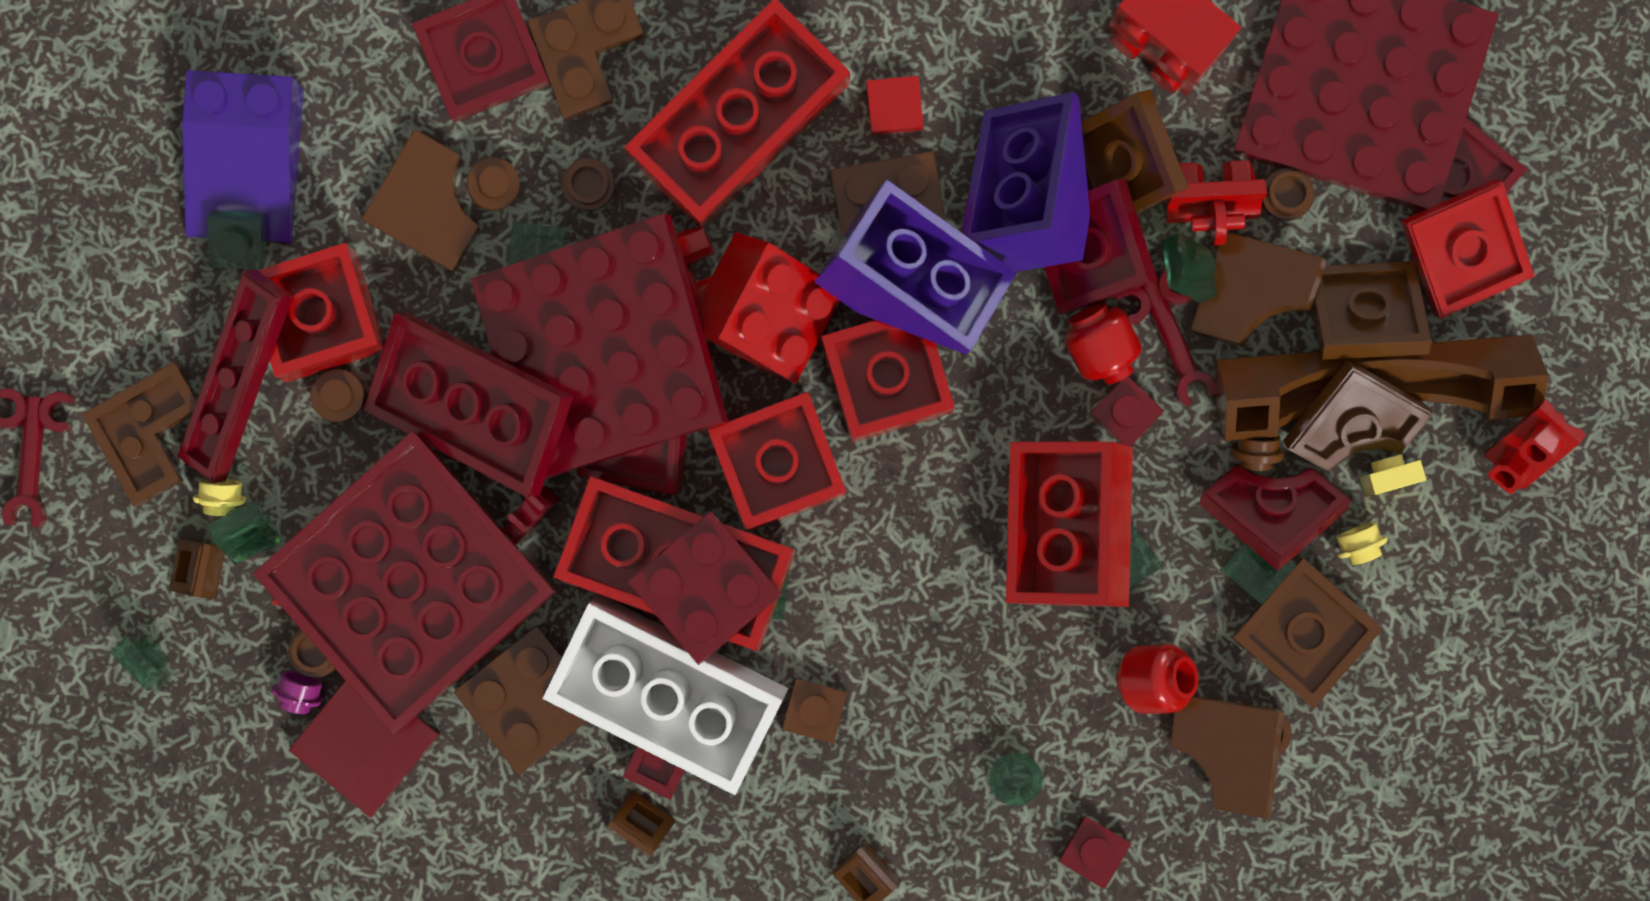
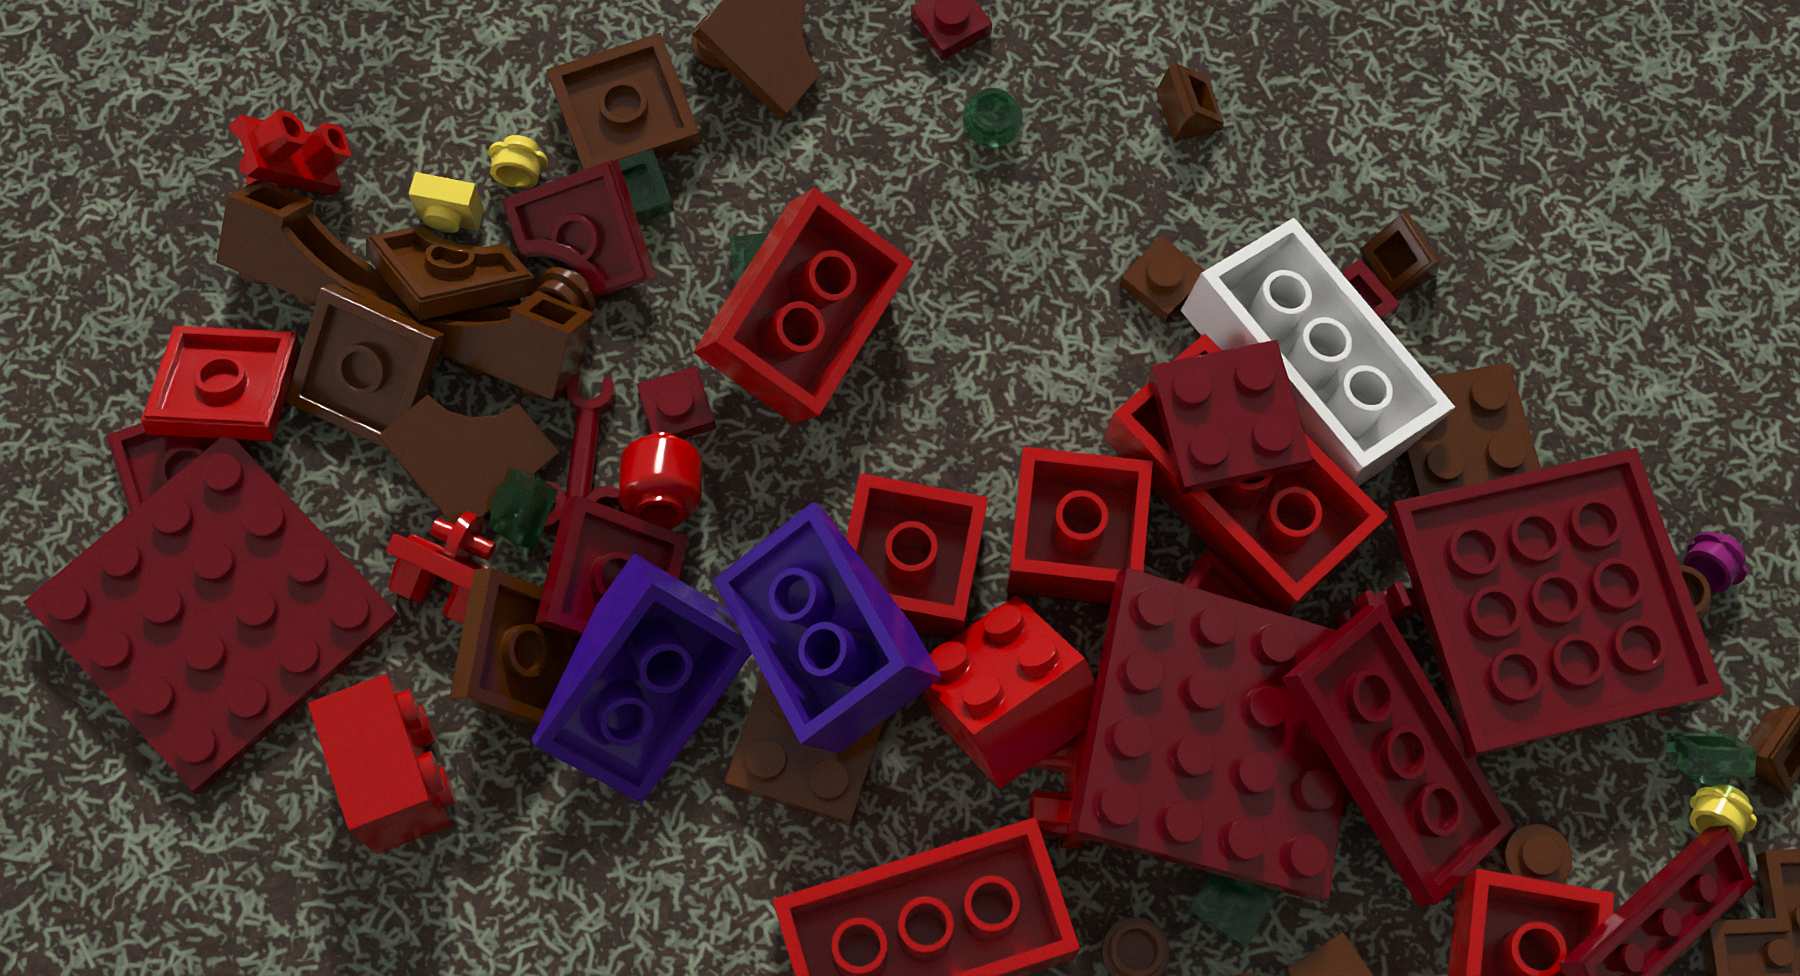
camera: 150 degrees left, 15 degrees down
(358, 752) = (1682, 467): dark red tile -> none
(894, 105) = (738, 860): red tile -> none
(1157, 678) = (799, 129): red head -> none
(1288, 194) = (366, 537): reddish brown plate -> none

